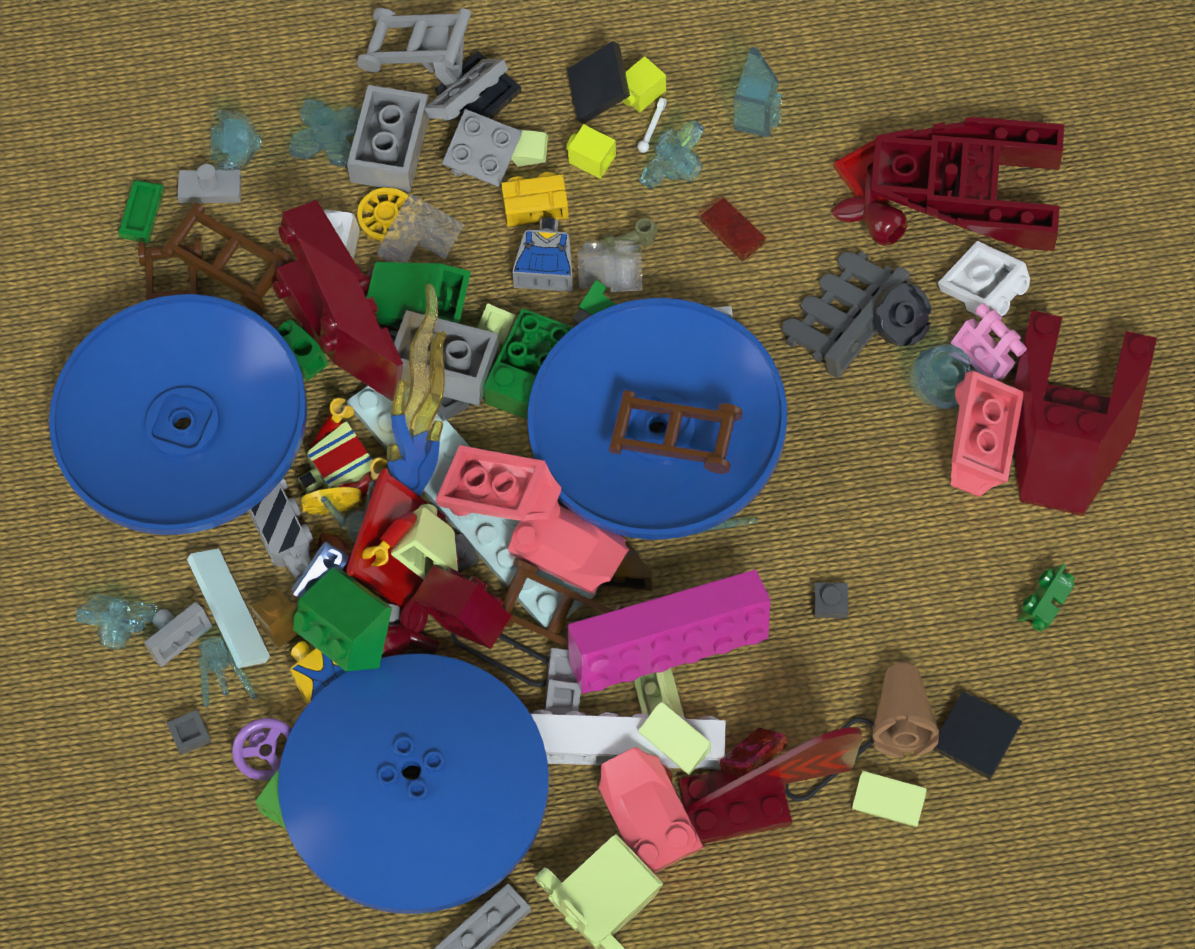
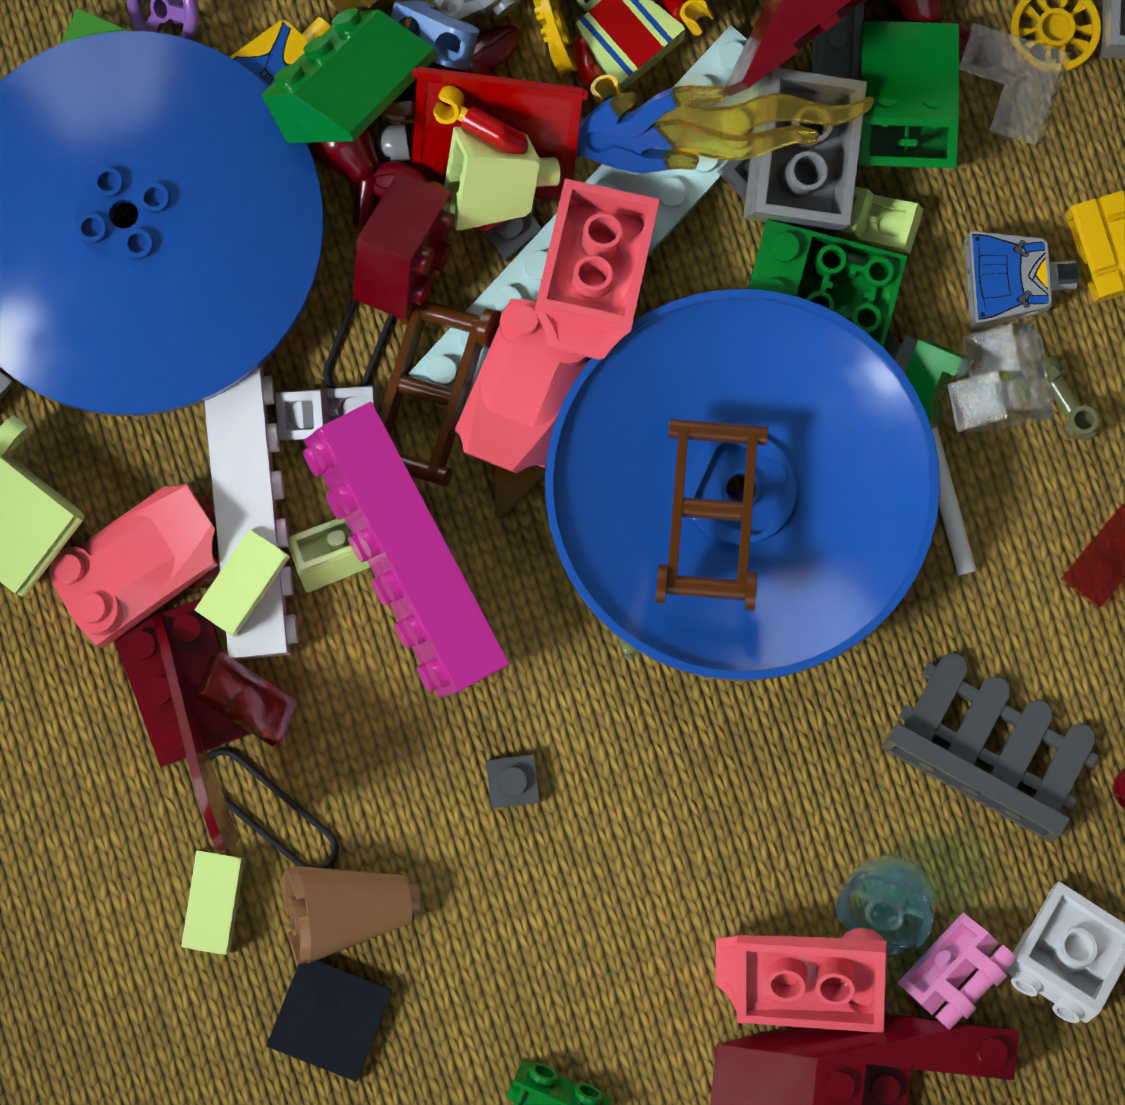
camera: 80 degrees right, 20 degrees up
(354, 520) = (533, 68): clear light blue plant -> none
(902, 314) = (990, 832): black tile -> none

